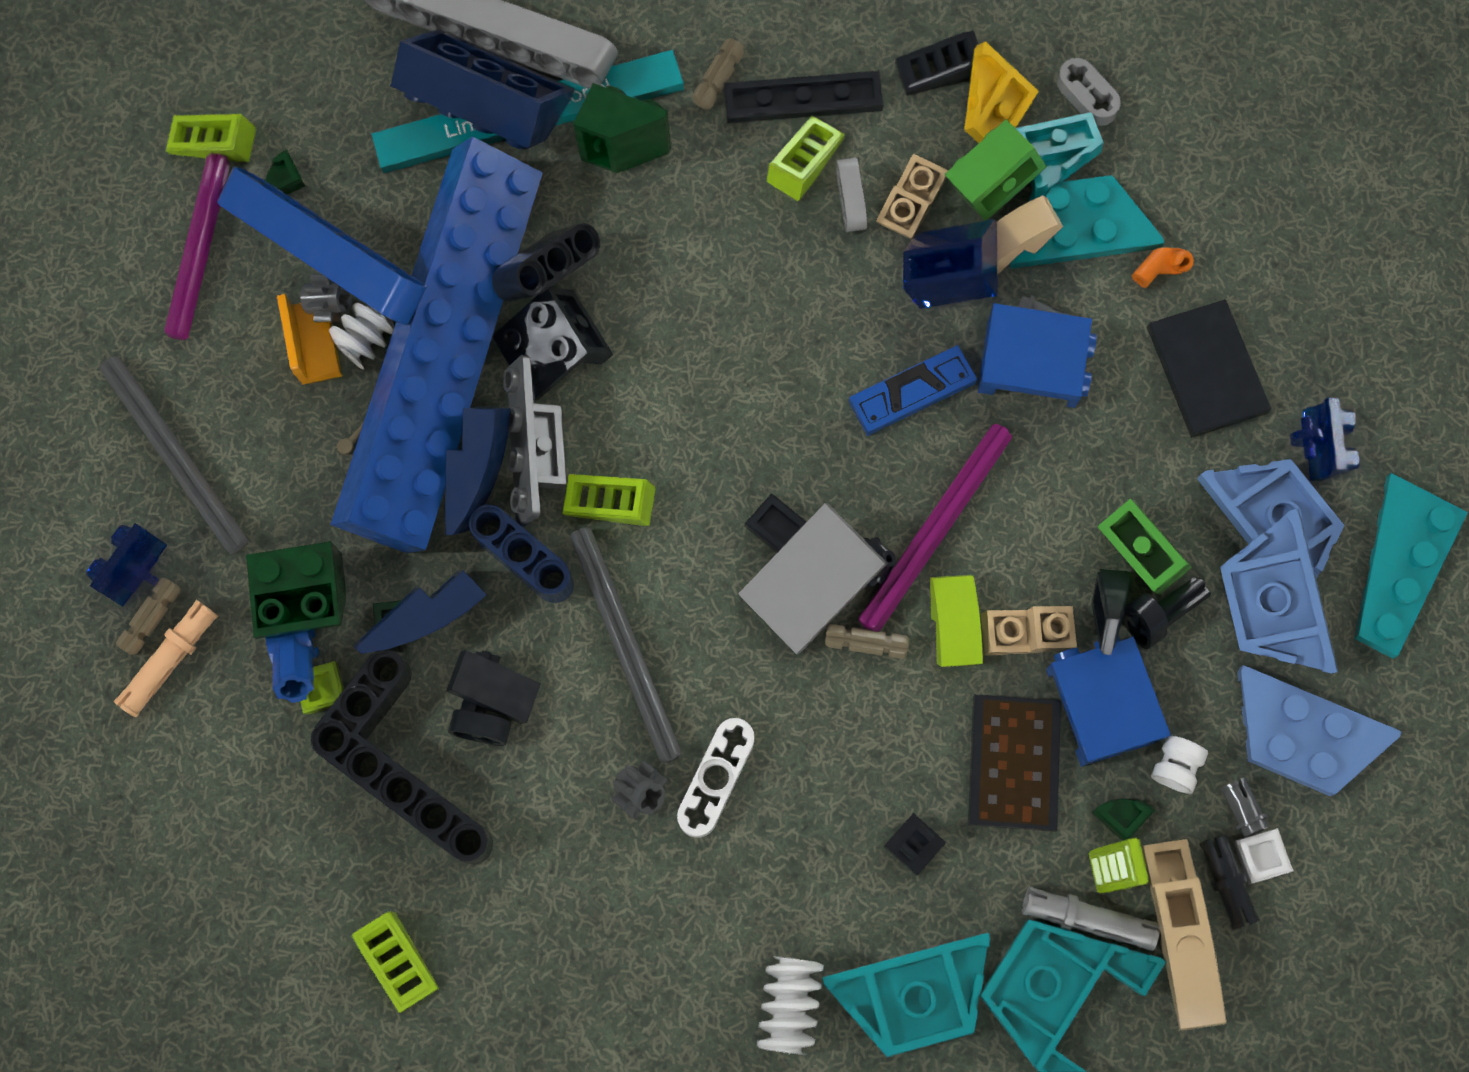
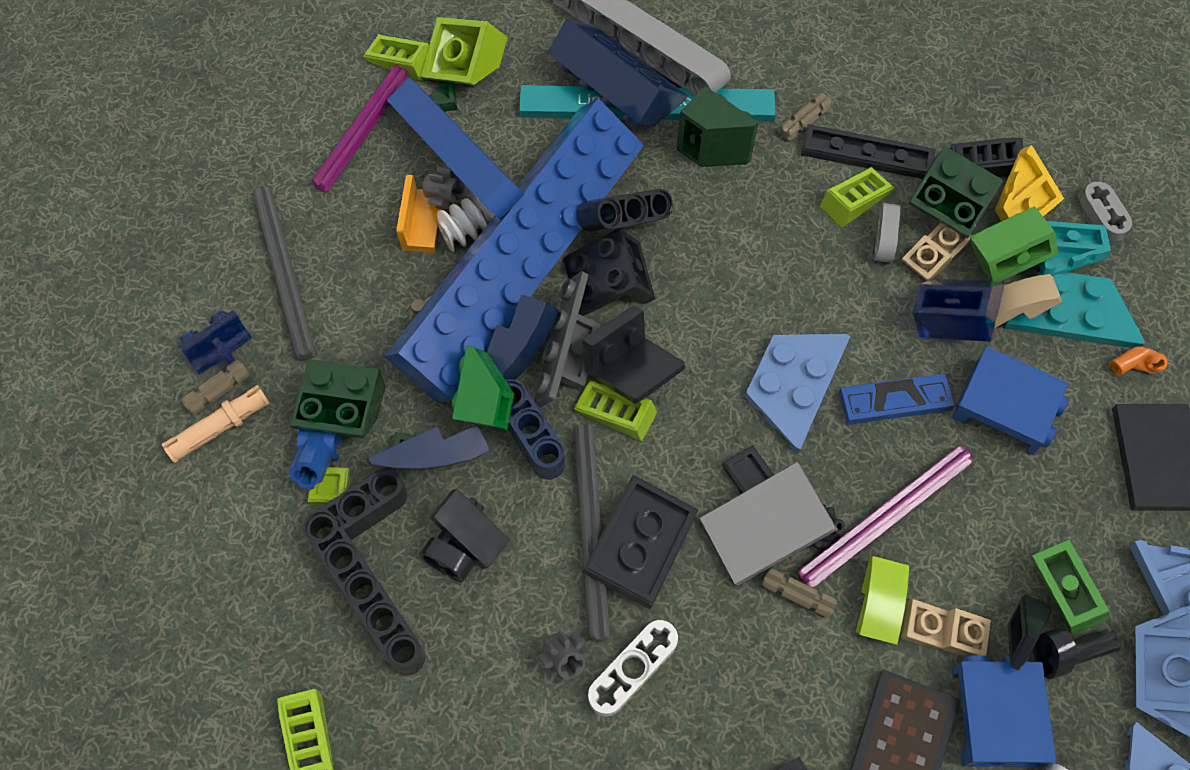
camera: 15 degrees right, 10 degrees down
(287, 113) = (463, 51): none -> lime slope
(457, 532) = (482, 392): none -> green slope
(606, 439) = (626, 359): none -> black bracket
(682, 640) = (640, 541): none -> black tile
(796, 404) = (794, 381): none -> medium blue wing
(913, 125) = (955, 191): none -> dark green slope

